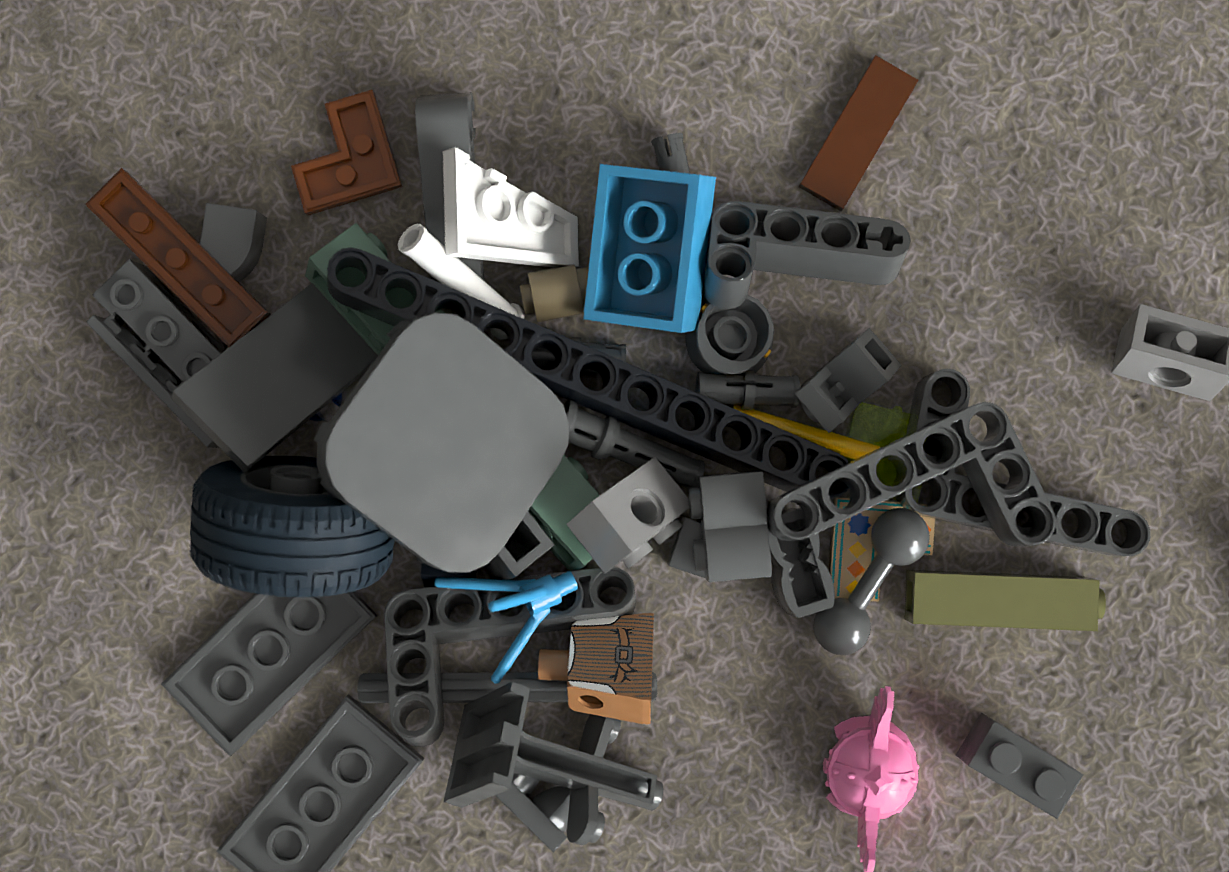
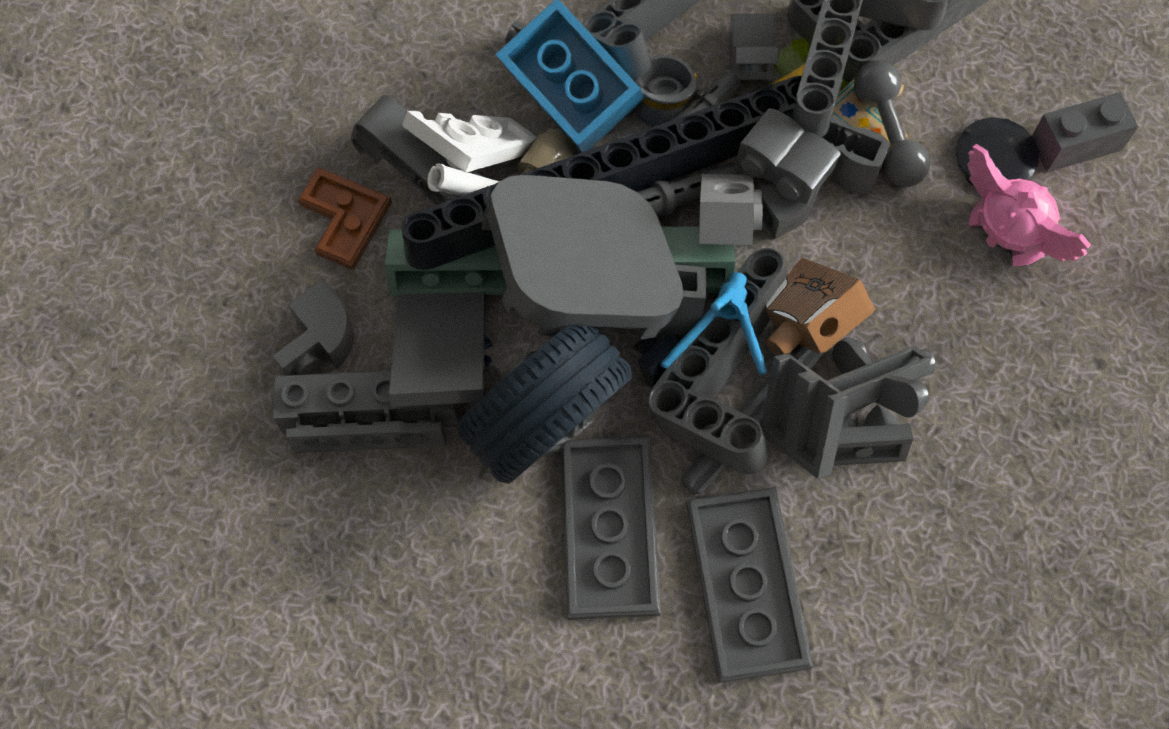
camera: 50 degrees left, 20 degrees down
(176, 258) = (304, 346): reddish brown tile -> none
(934, 697) = (1007, 144): none -> black dish
(1003, 600) = (965, 67): olive brick -> none

